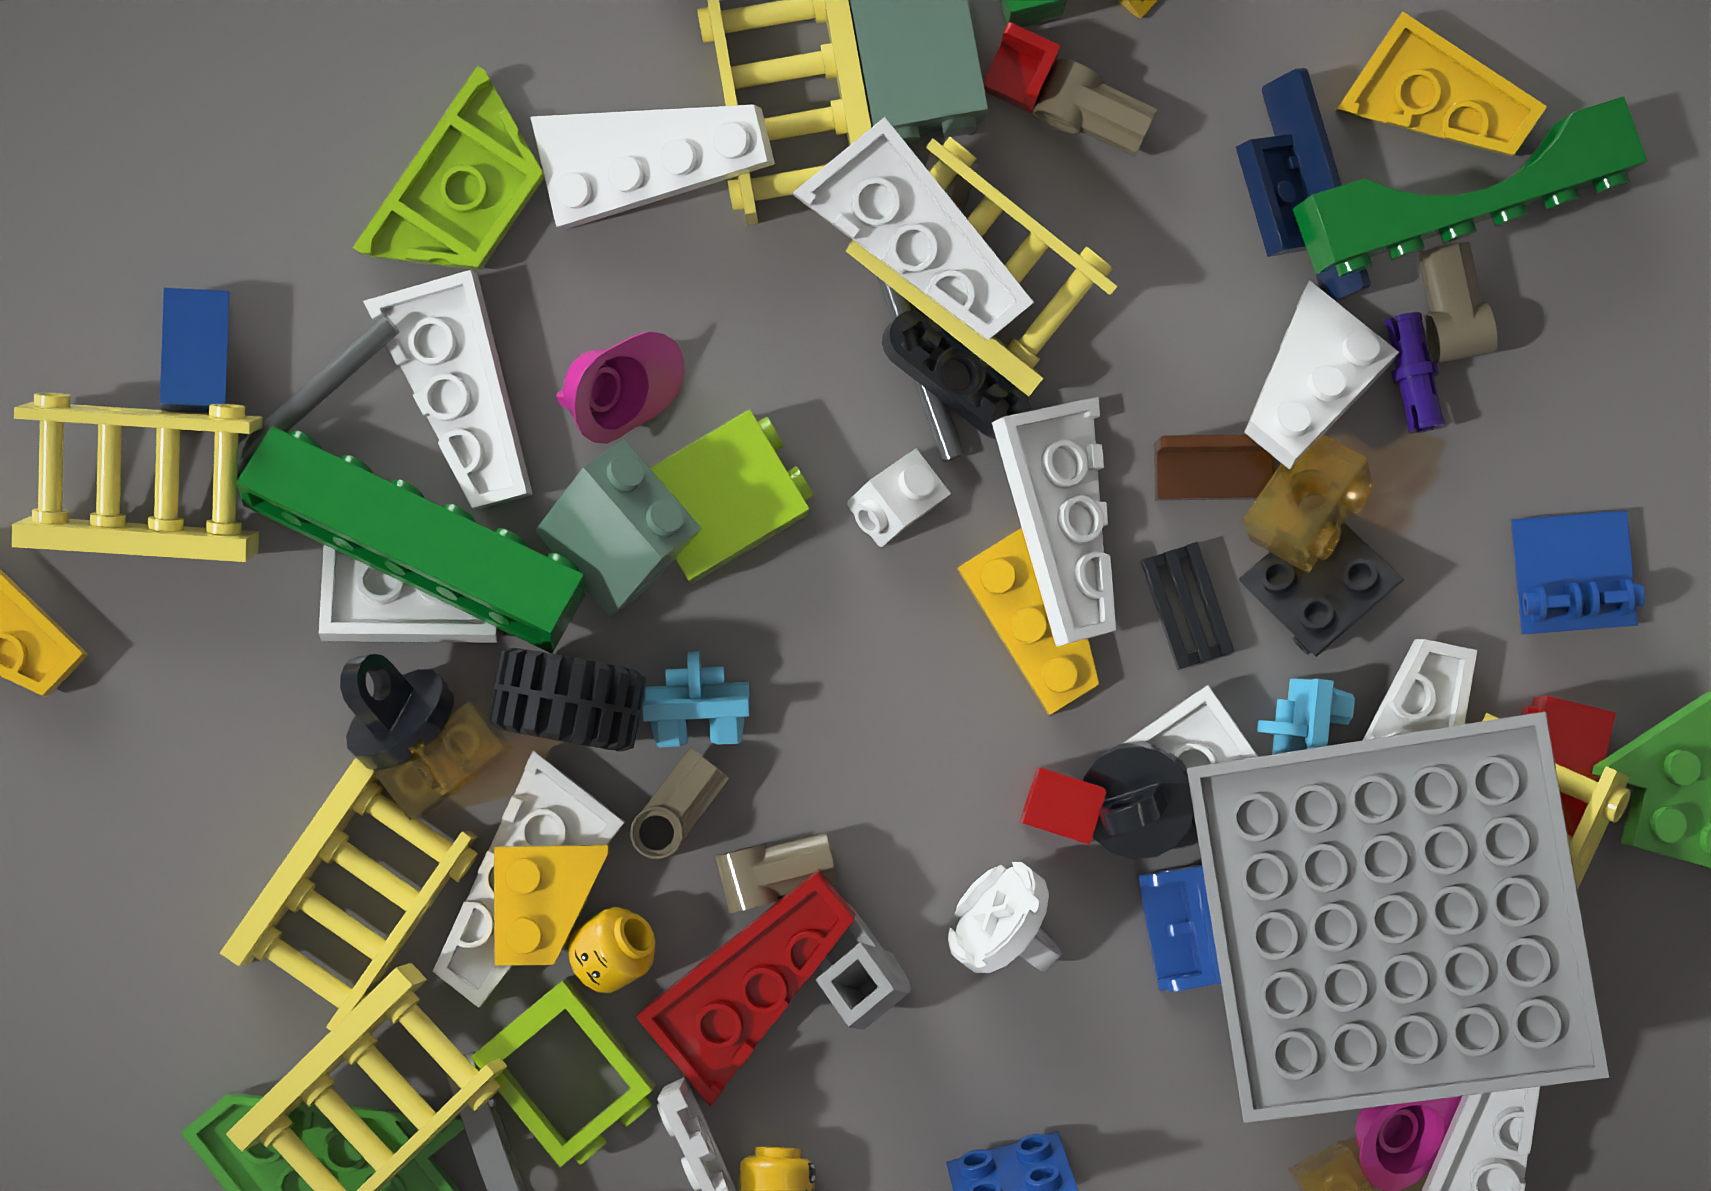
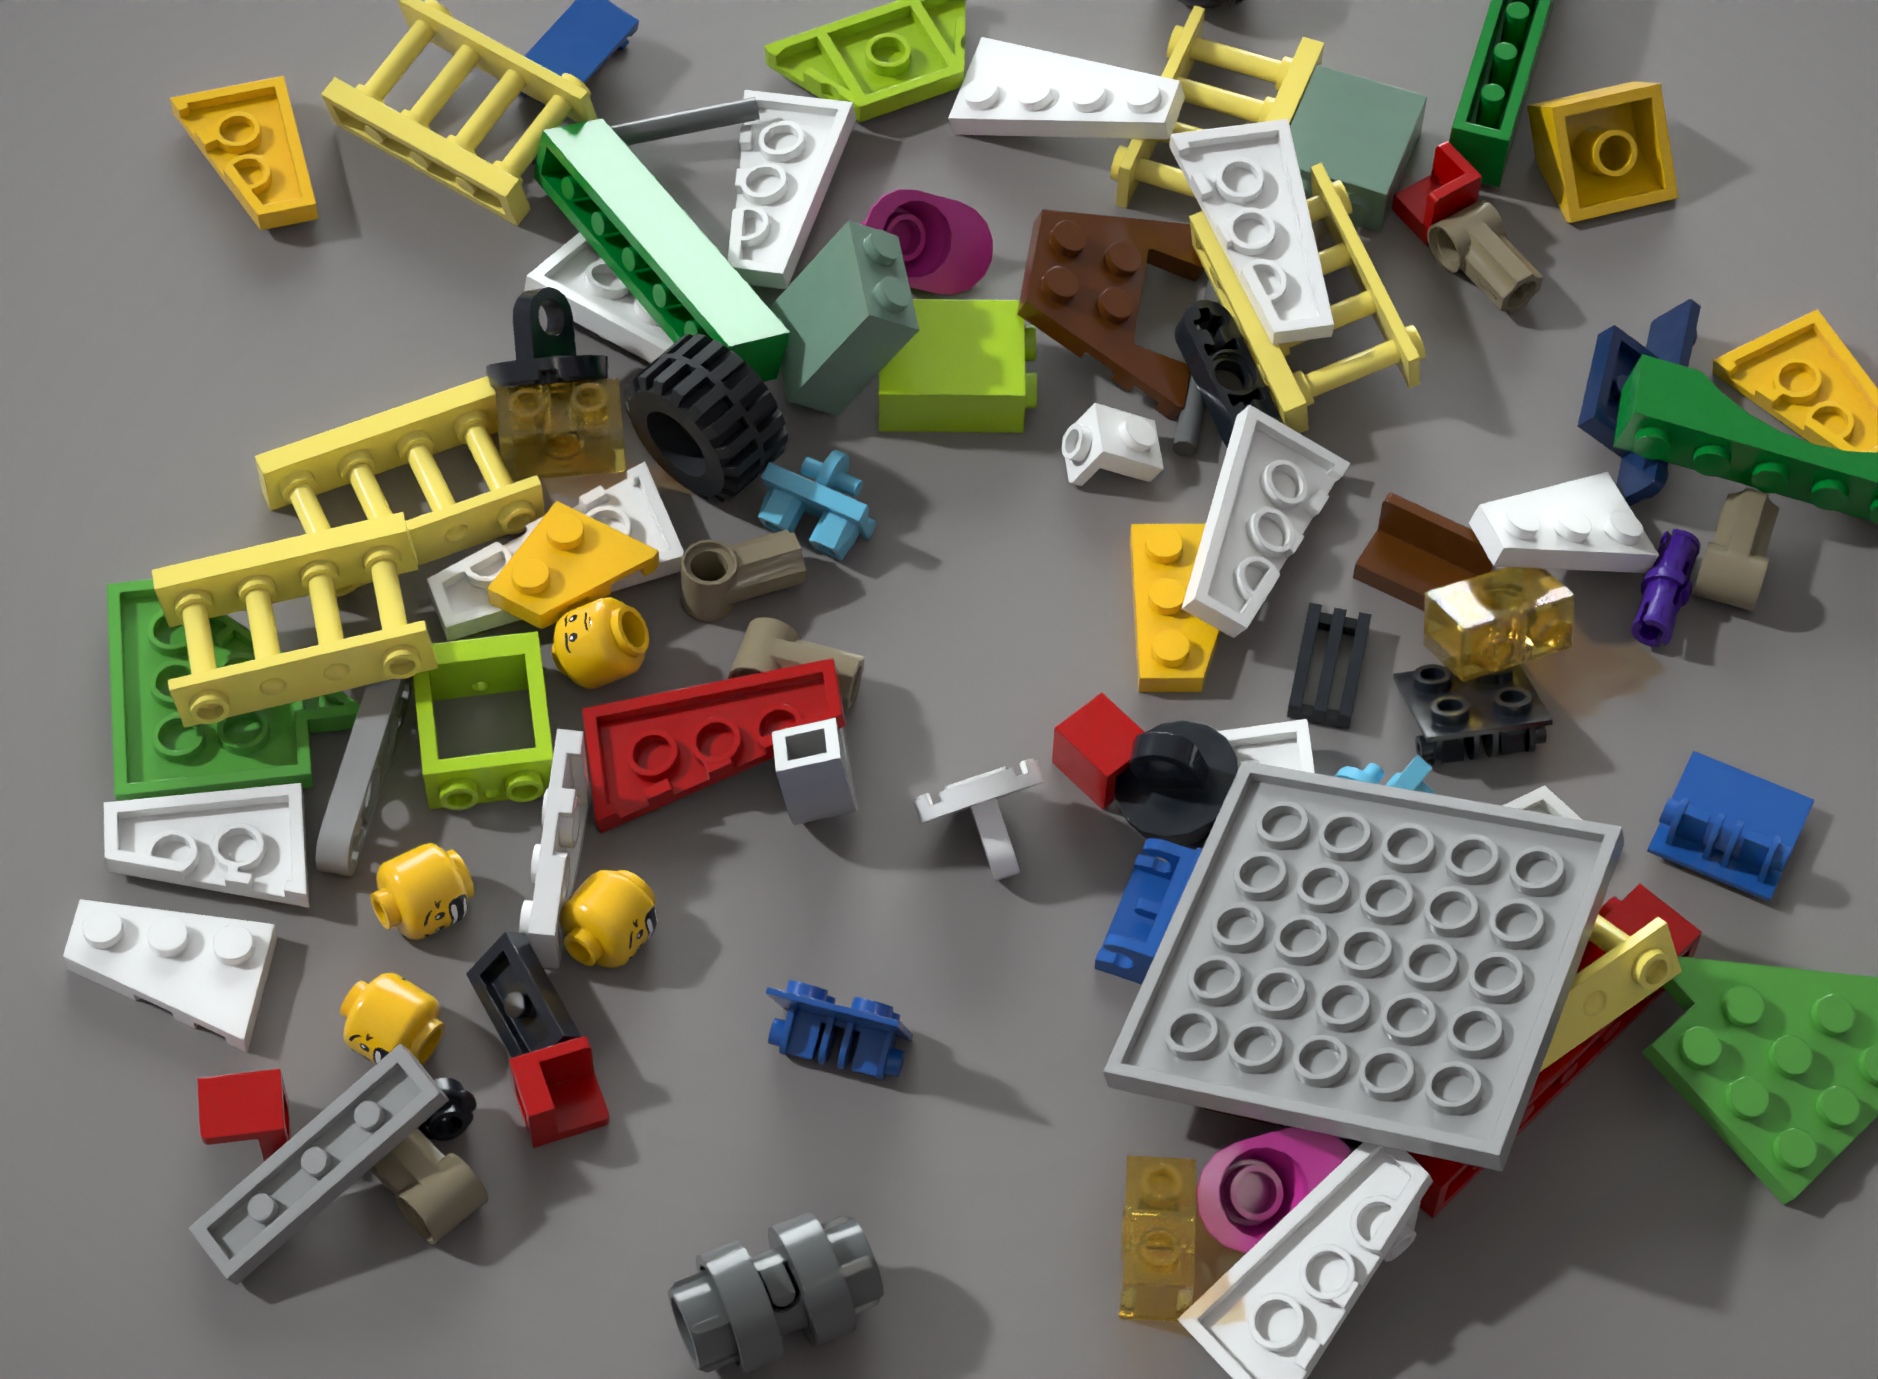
camera: 30 degrees right, 30 degrees down
(791, 356) = (1087, 291): none -> reddish brown wing

